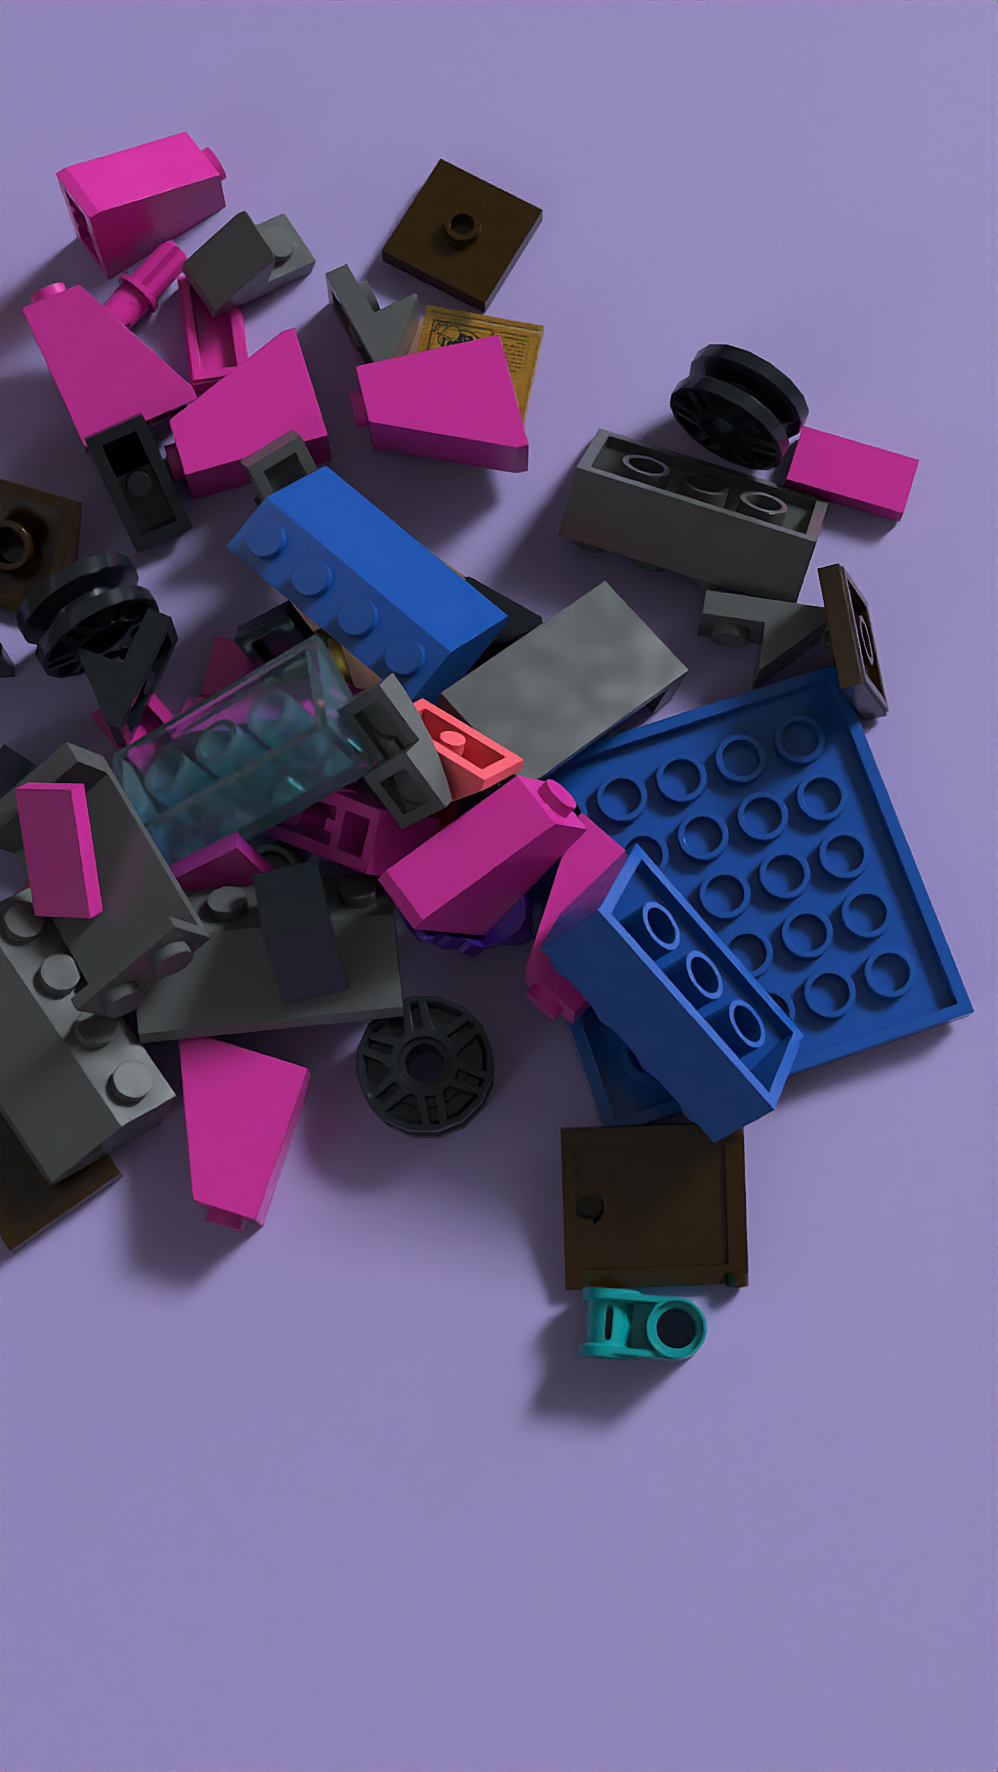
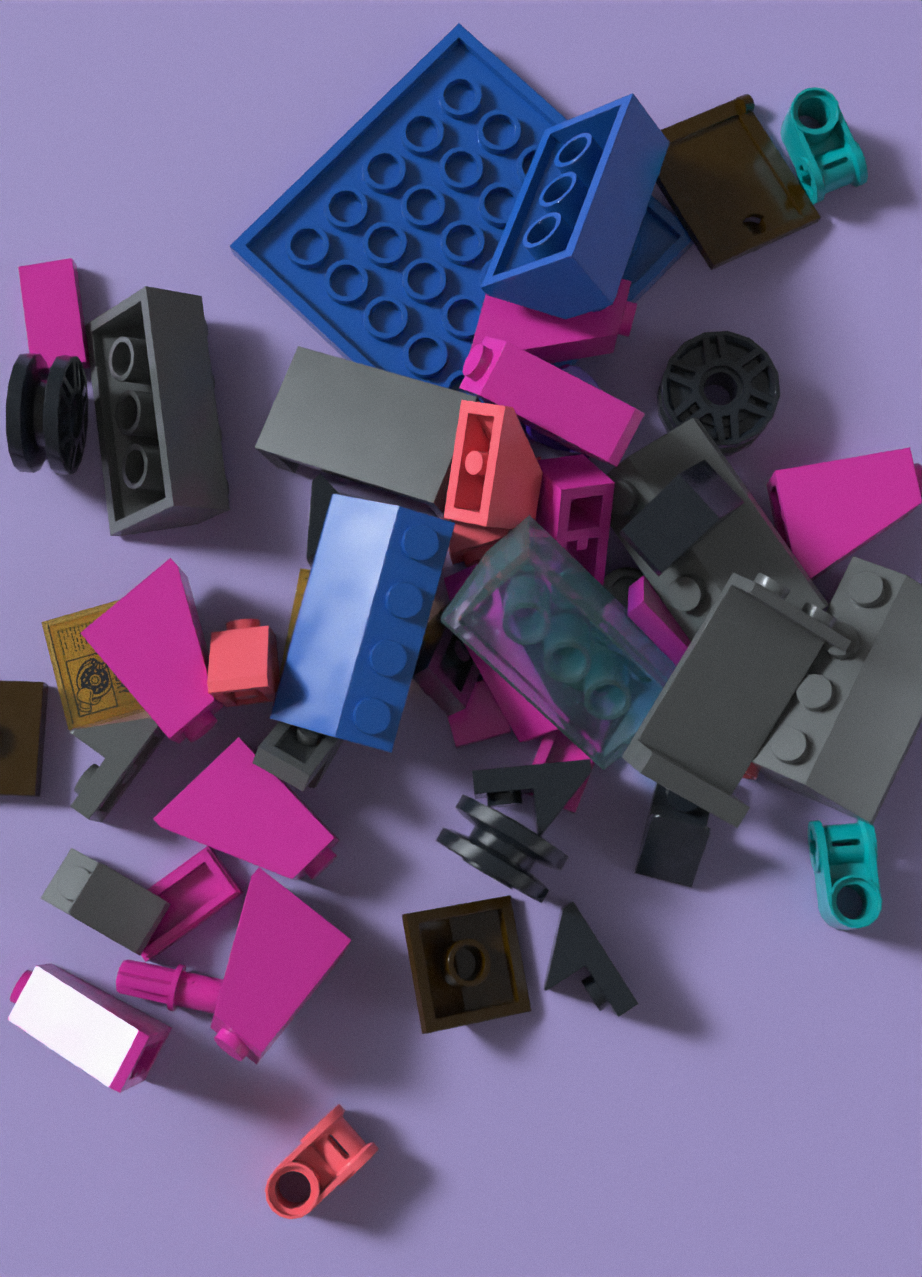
camera: 110 degrees left, 5 degrees up
(59, 850) = (727, 734): dark pink tile -> none
(138, 482) = (359, 877): black slope -> none
(396, 471) = (243, 664): none -> coral slope
(407, 765) = (513, 487): dark grey slope -> none
(778, 628) = (229, 305): dark grey slope -> none
(852, 642) = (213, 232): dark brown plate -> none

